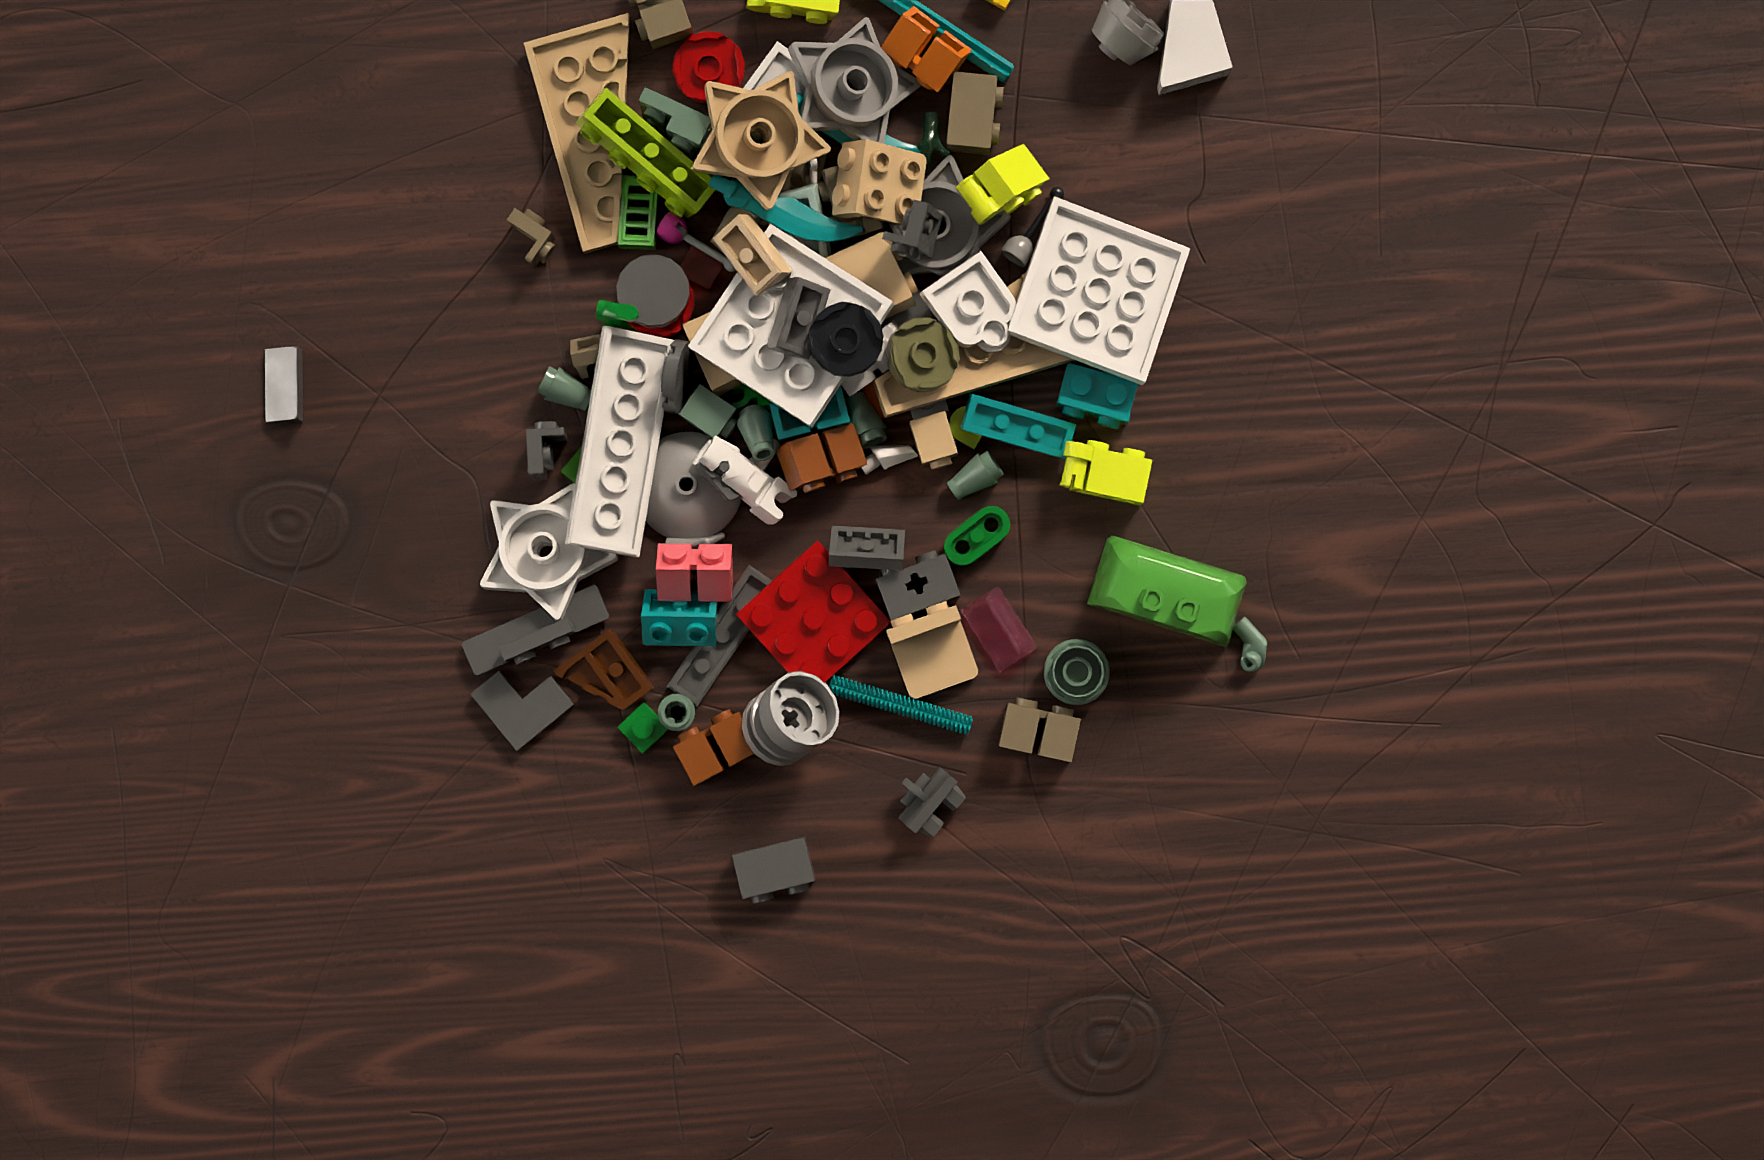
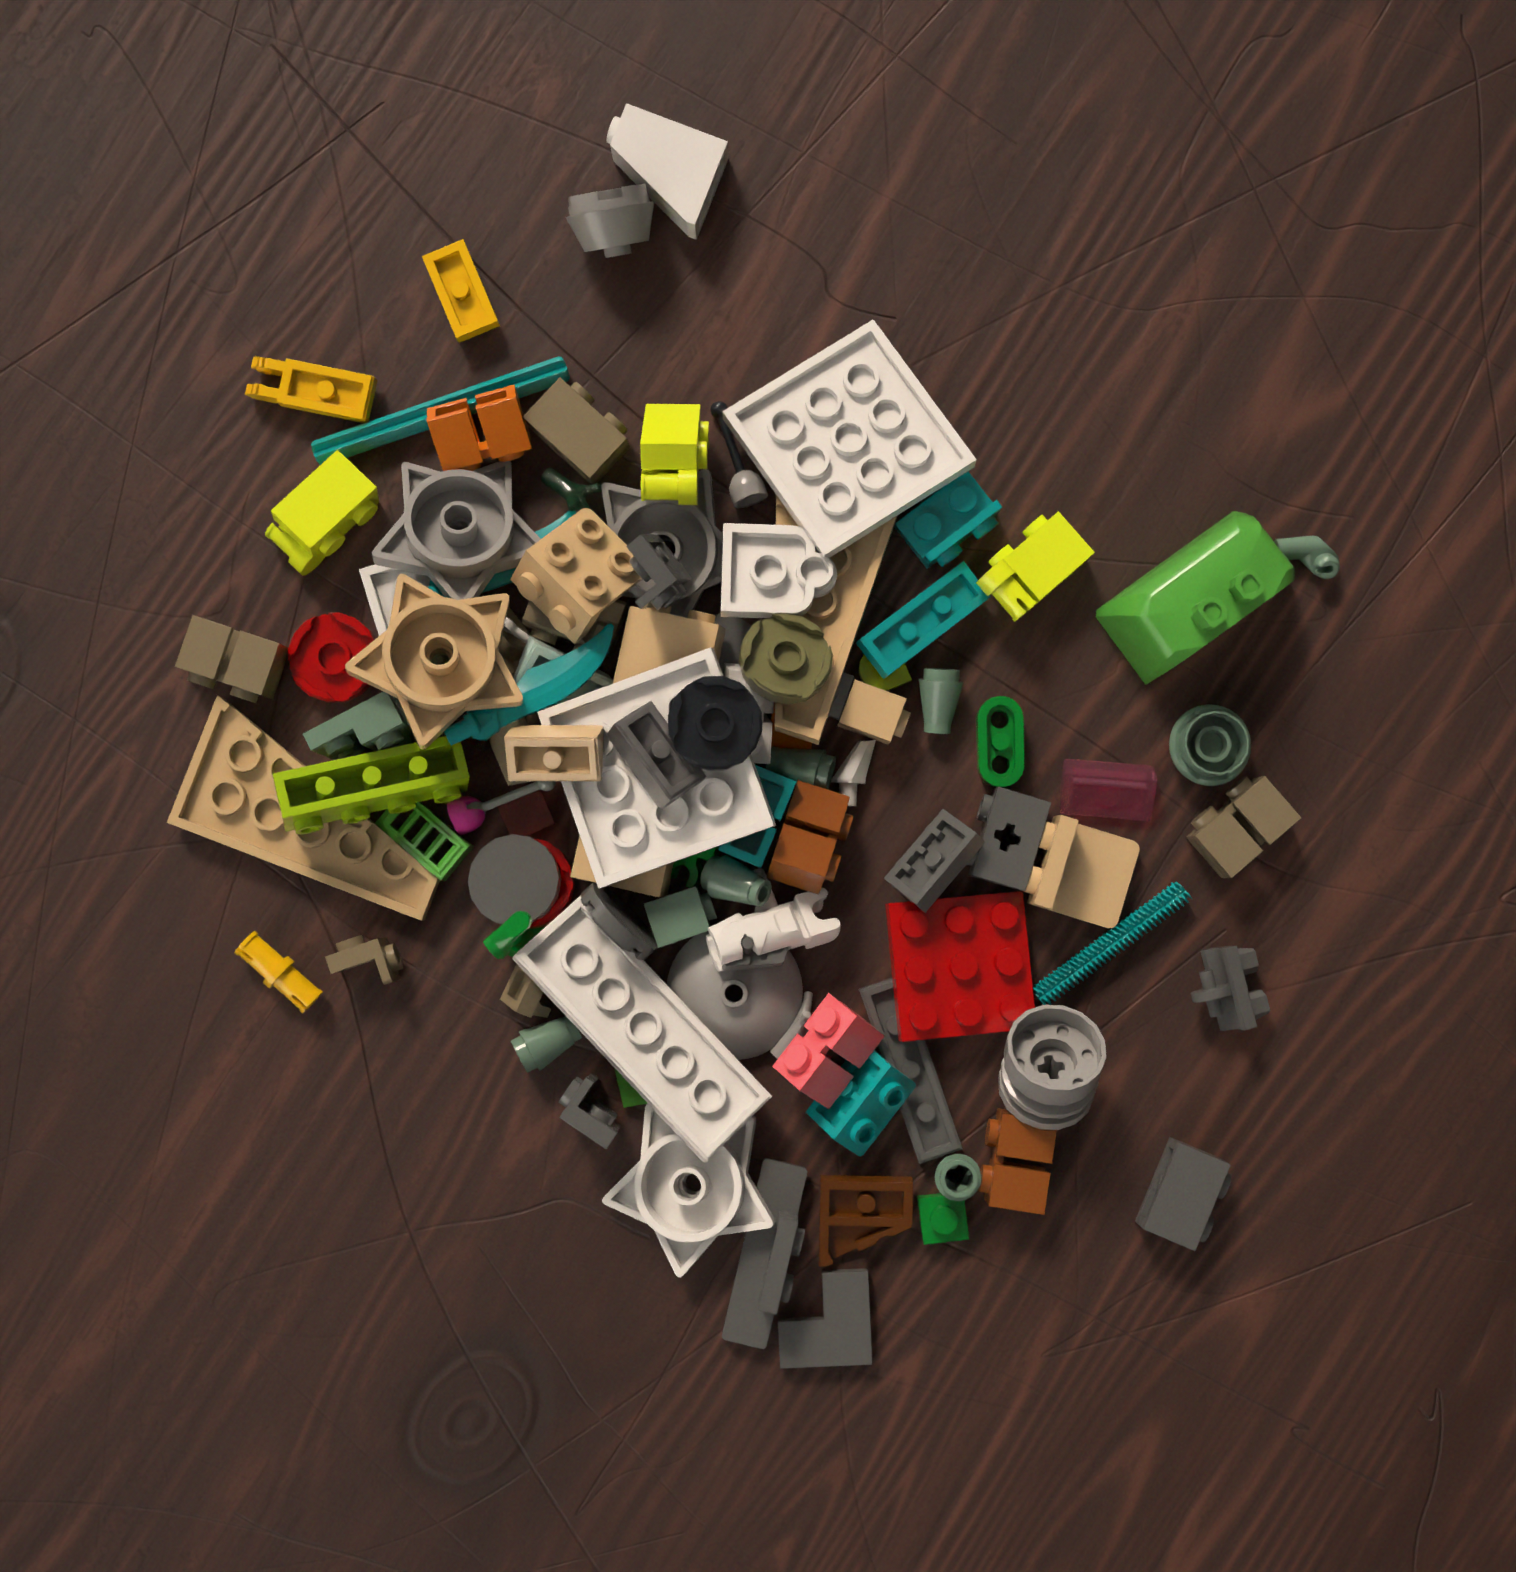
camera: 50 degrees left, 0 degrees up
(284, 384) = (326, 1321): slope -> none
(481, 186) = (278, 972): none -> yellow pin

